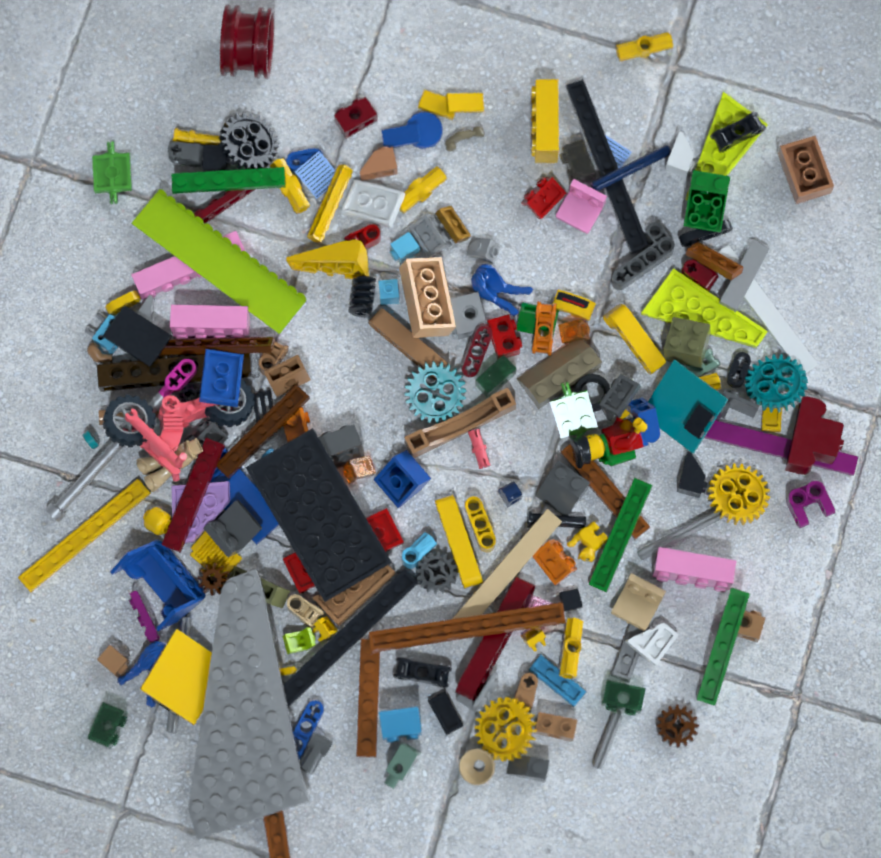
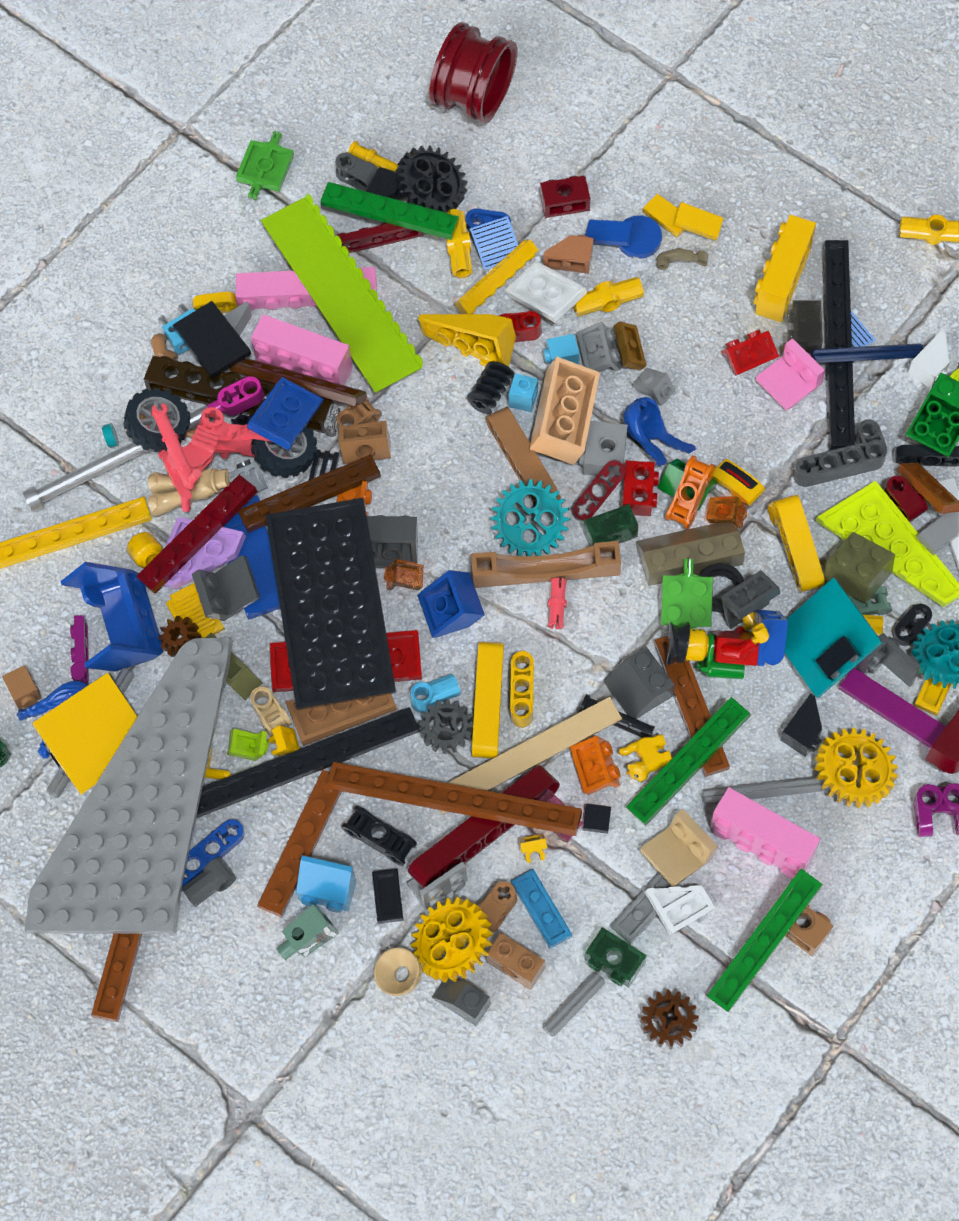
camera: 25 degrees right, 10 degrees down
(510, 494) = (571, 665): dark blue leg -> none
(572, 637) = (566, 885): yellow piece -> none

